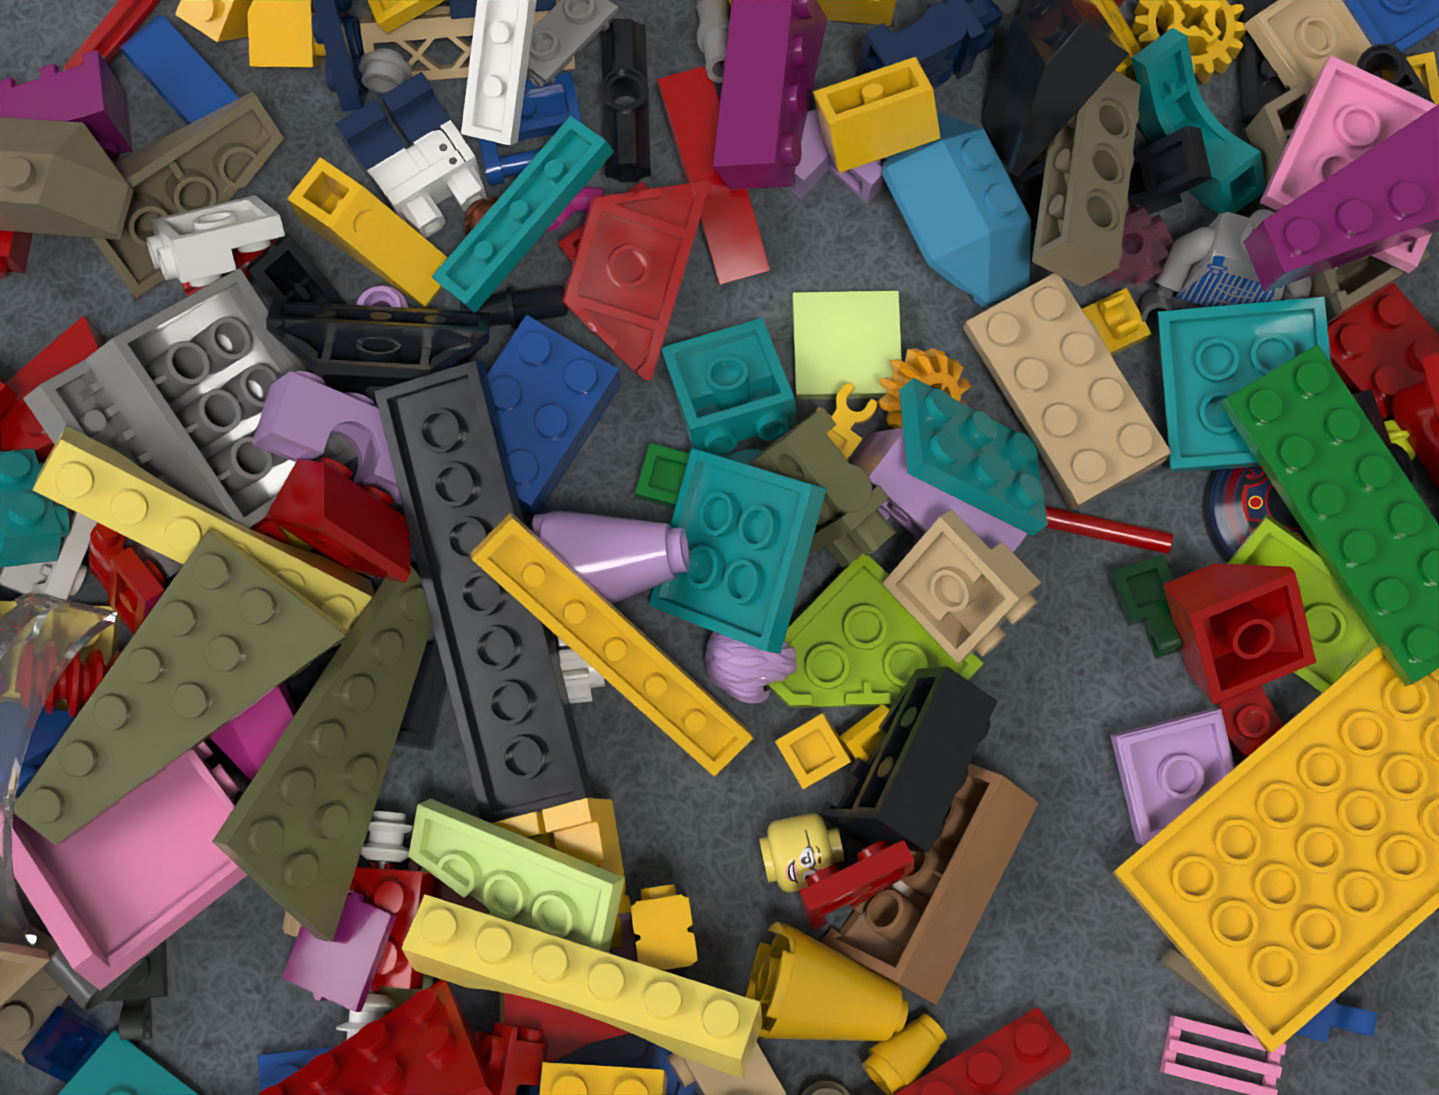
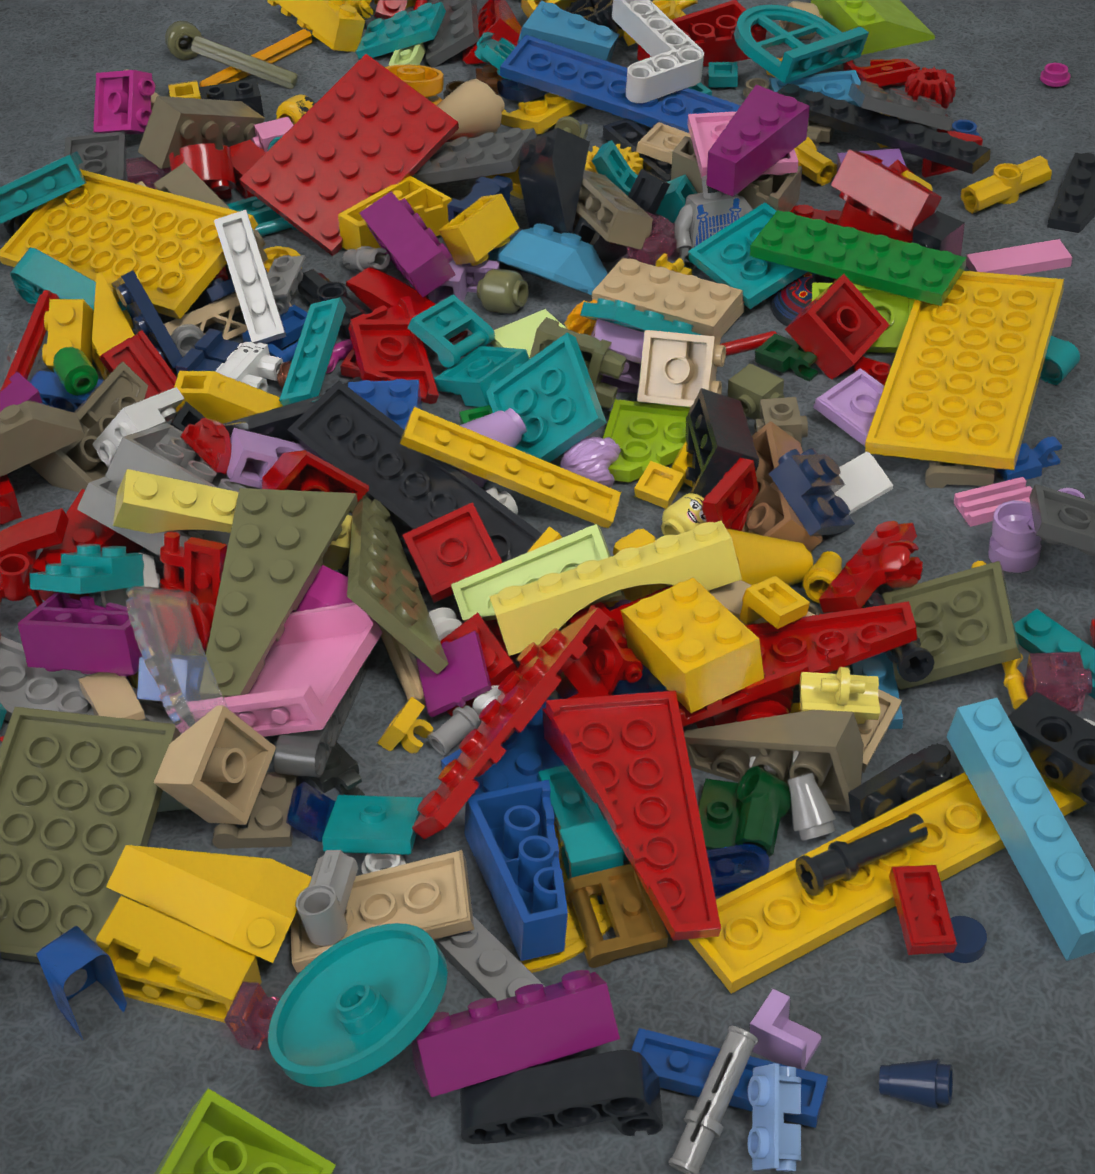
camera: 25 degrees left, 35 degrees down
(190, 69) = (75, 371): none -> green brick
(243, 974) = (403, 727): none -> yellow tile
(260, 363) = (210, 442): none -> red plate
(294, 96) = (144, 361): none -> red plate
(301, 1017) = (454, 729): none -> light grey pin
(456, 745) = (451, 550): none -> red plate
(726, 263) = (447, 320): none -> teal plate
(860, 223) = (502, 291): none -> olive head
(969, 937) = (809, 488): none -> dark blue plate
(1049, 739) = (784, 414): none -> dark tan brick
(1054, 659) = (751, 386): none -> olive brick
(1056, 914) = (863, 482): none -> white slope

